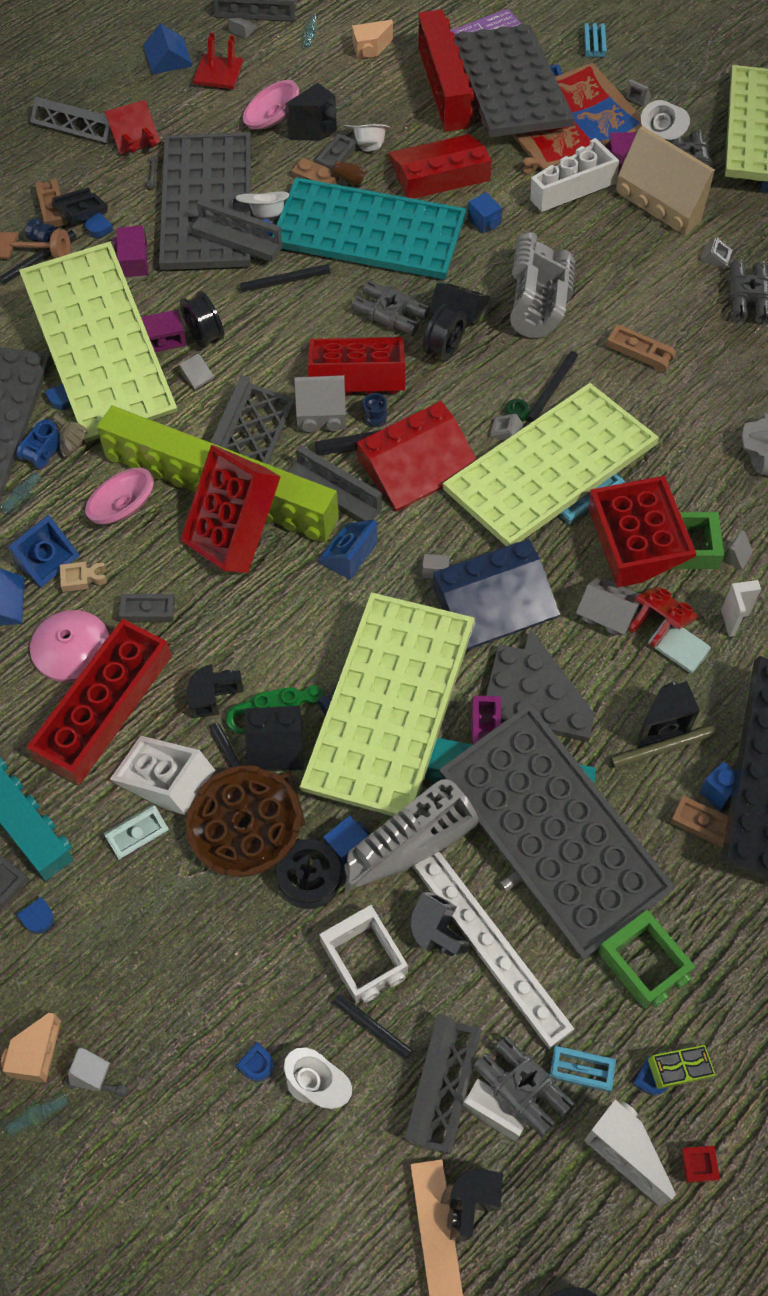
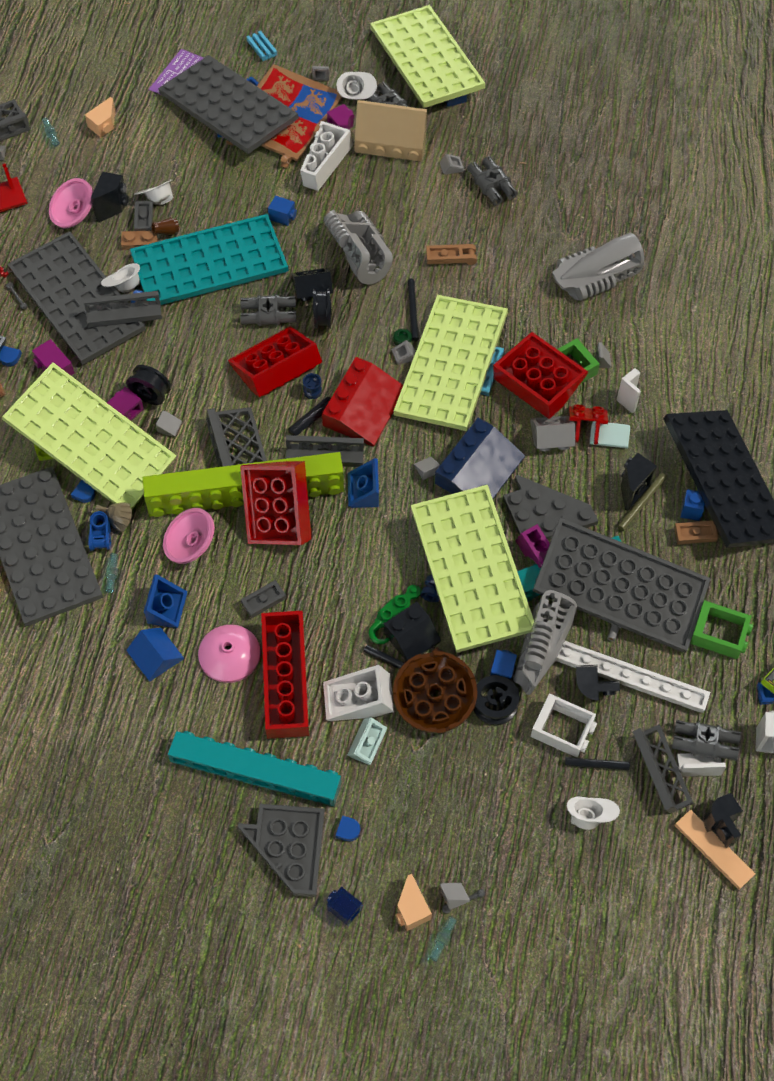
camera: 35 degrees left, 0 degrees up
(78, 575) = (201, 605): tan plate -> none
(206, 686) = (345, 628): black brick -> none
(256, 1064) = (547, 827): blue tile -> none
(284, 278) = (178, 324): black bar -> none
(320, 403) = (276, 401): light grey slope -> none
(441, 166) = (224, 190): red slope -> none
(445, 70) = (178, 118): red brick -> none
(581, 1081) = (712, 718): medium azure tile -> none

